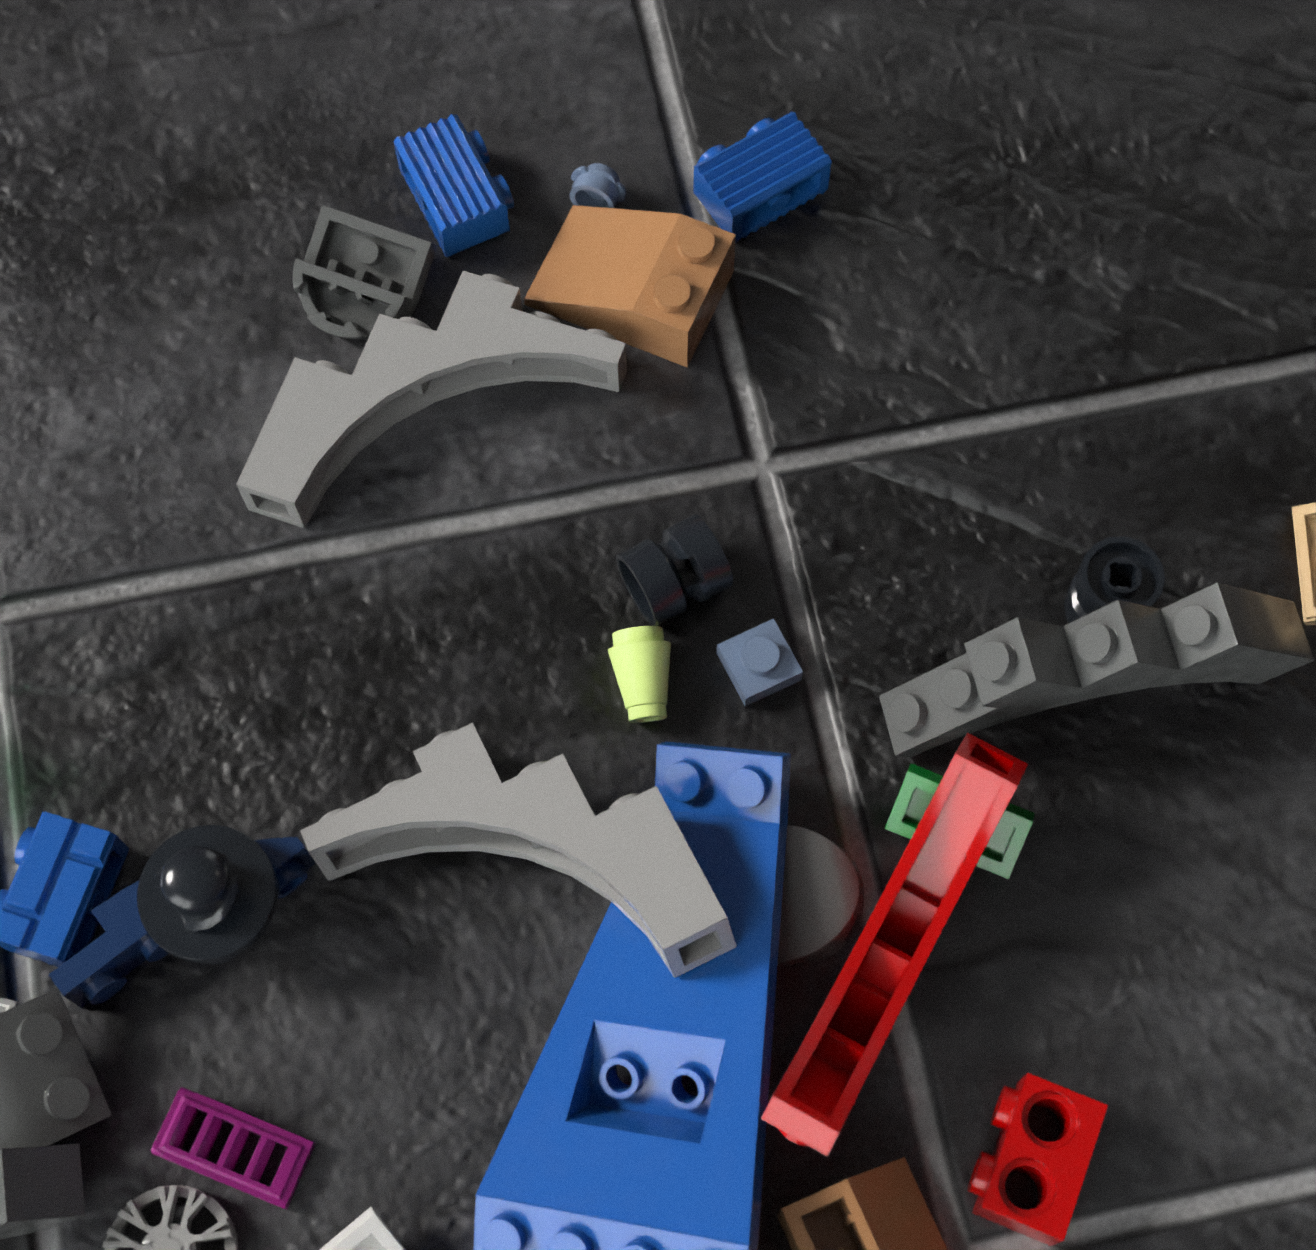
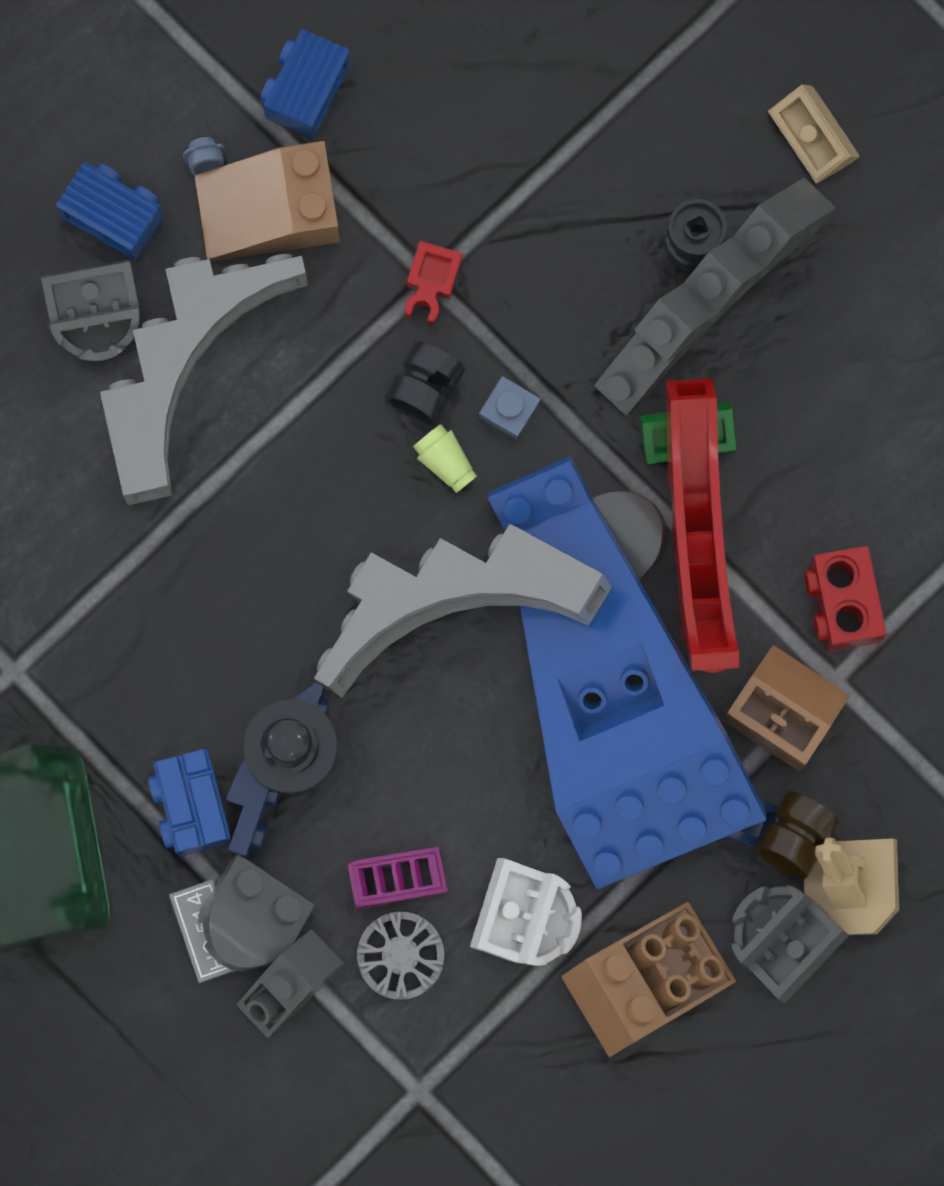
camera: 35 degrees left, 10 degrees up
(763, 458) = (433, 275): none -> red plate

